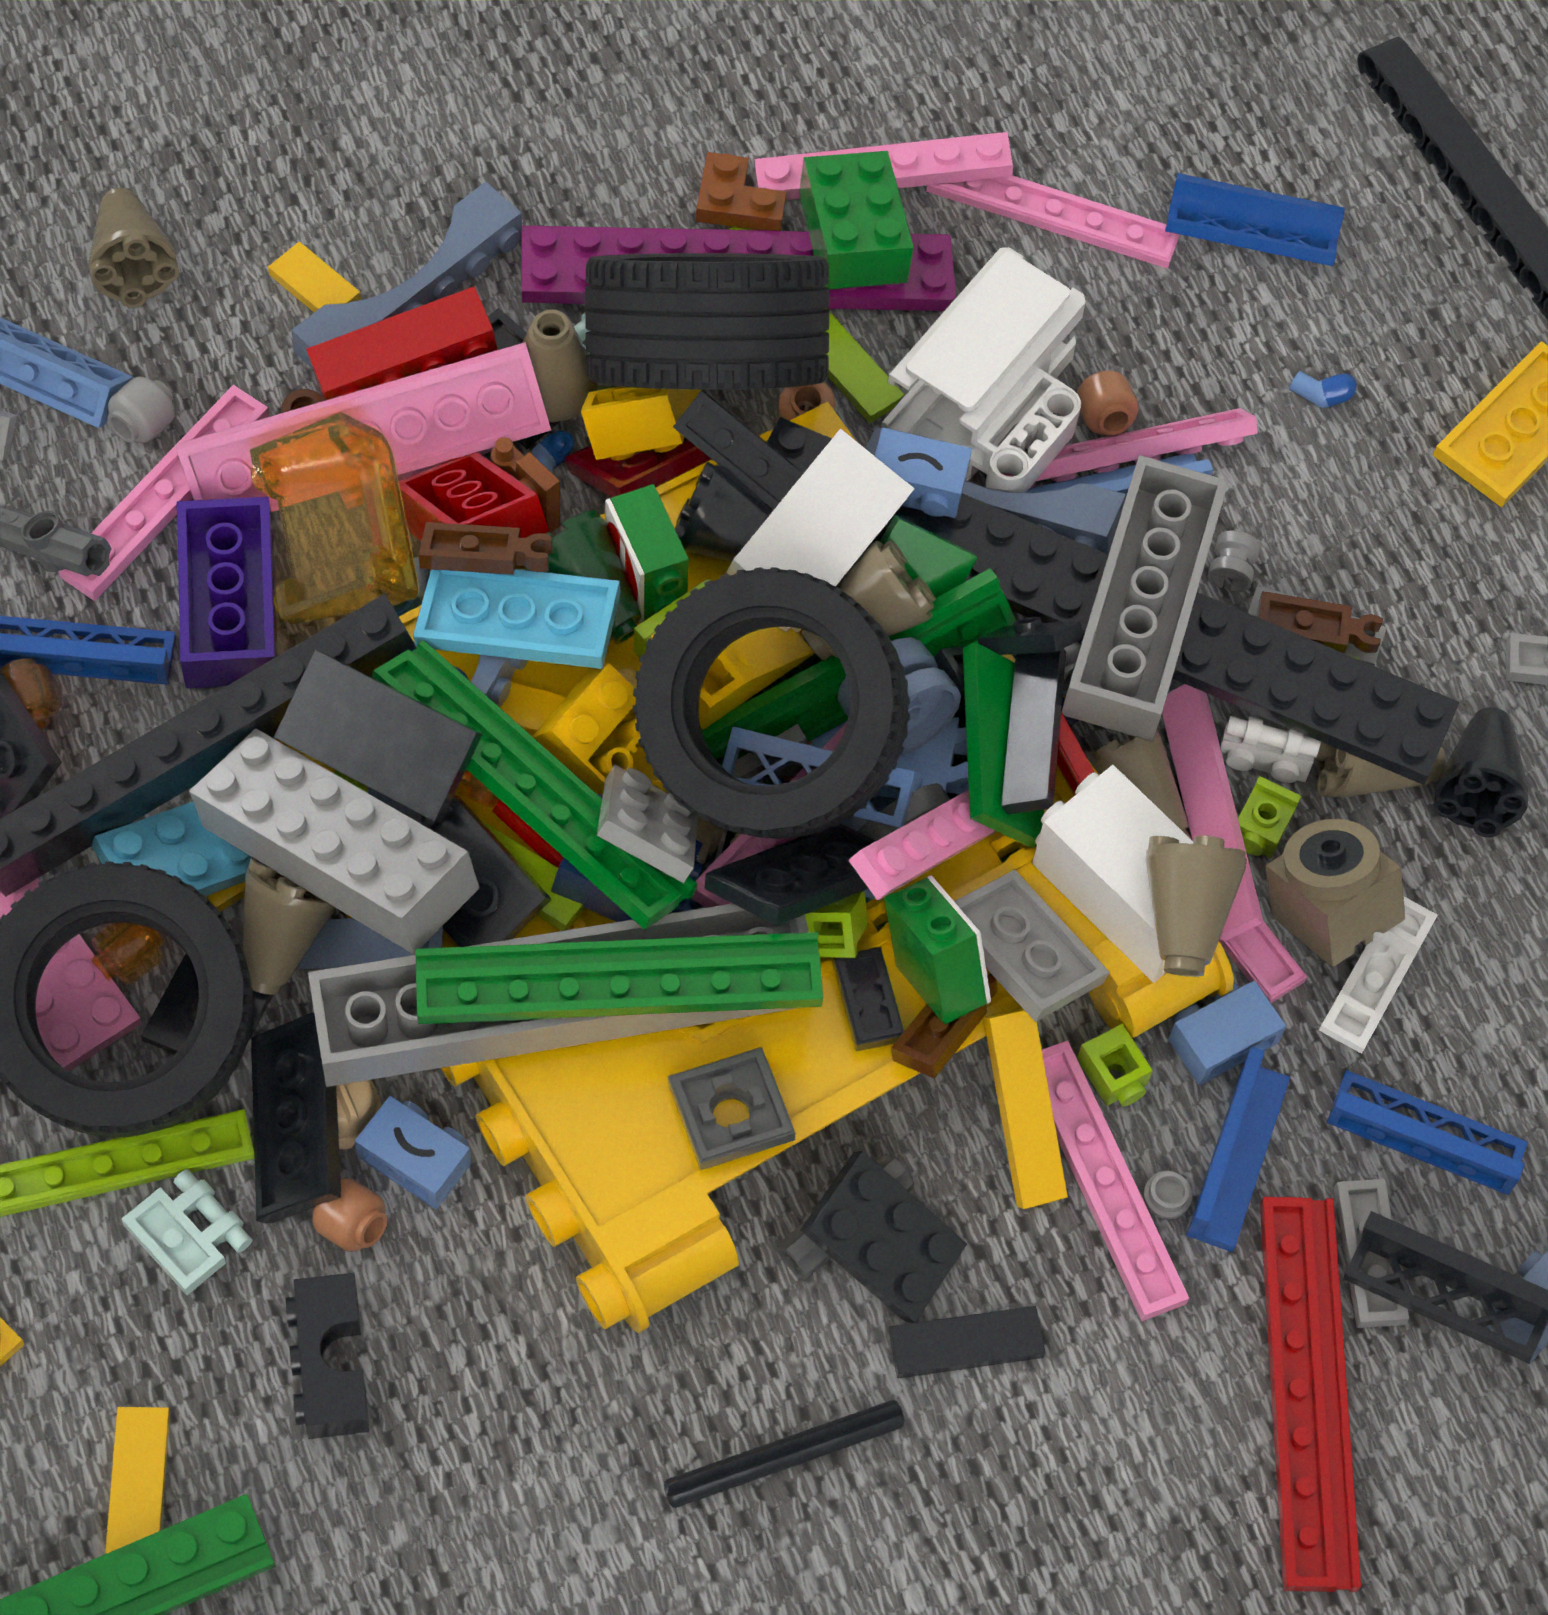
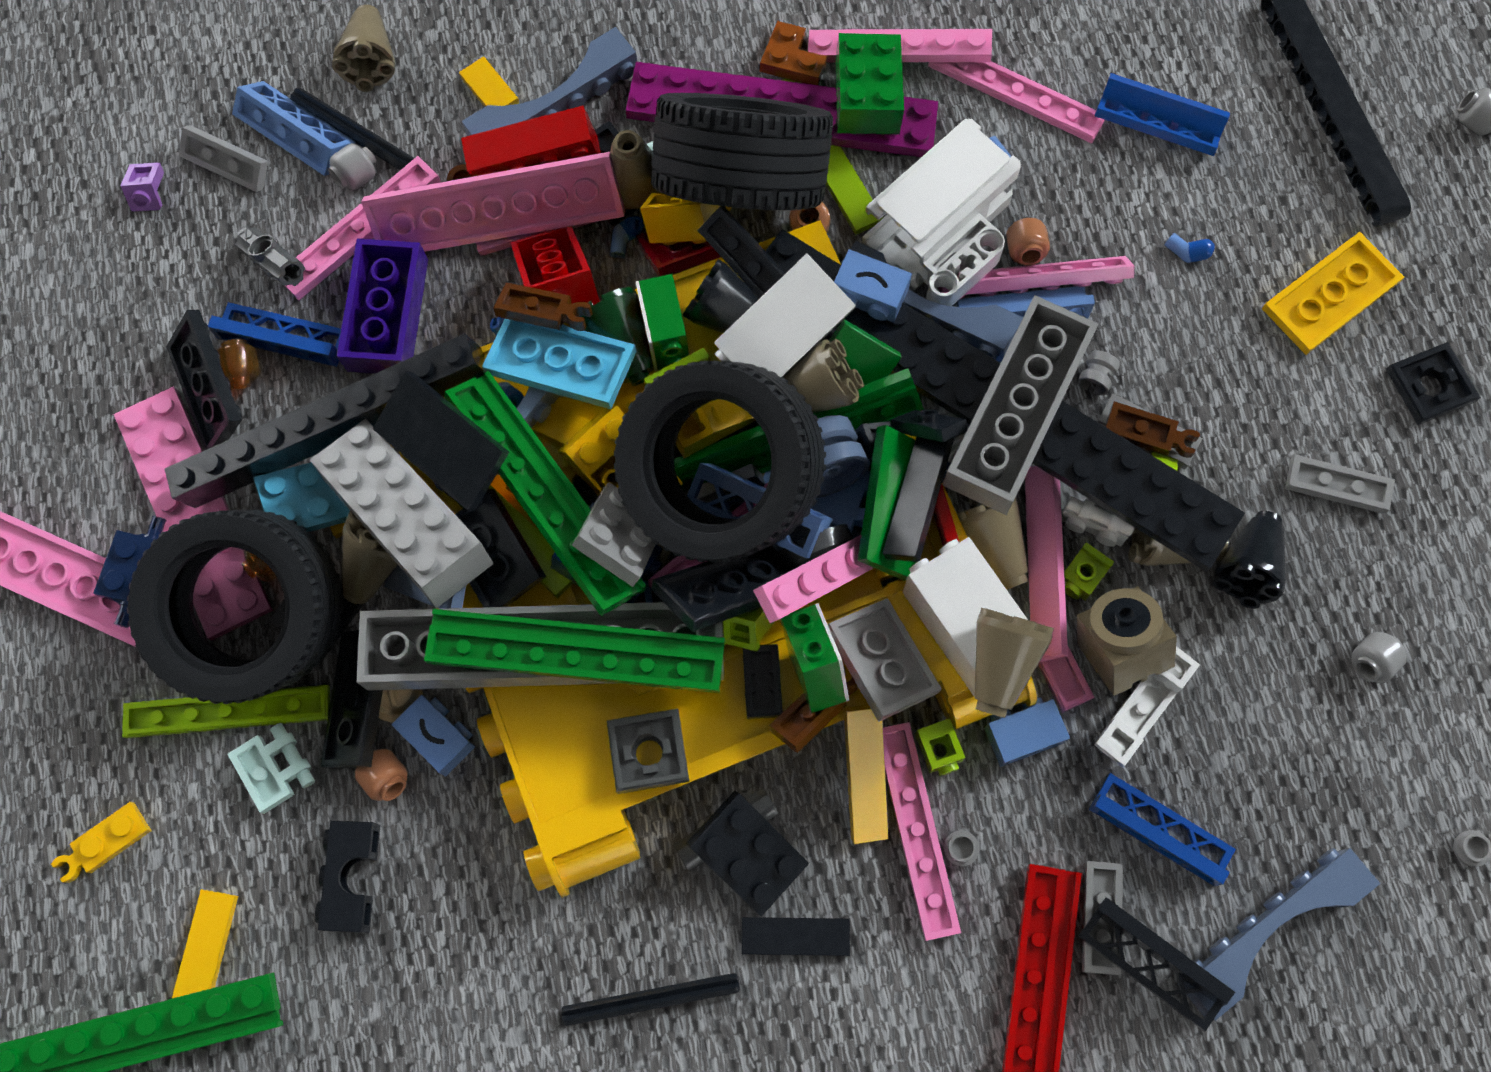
camera: 20 degrees right, 10 degrees up
(127, 360) = (352, 129): none -> black axle
(337, 518) = (466, 263): clear yellow windscreen -> none
(531, 474) = (604, 257): dark orange plate -> none
(1238, 1154) = (1018, 825): blue fence -> none

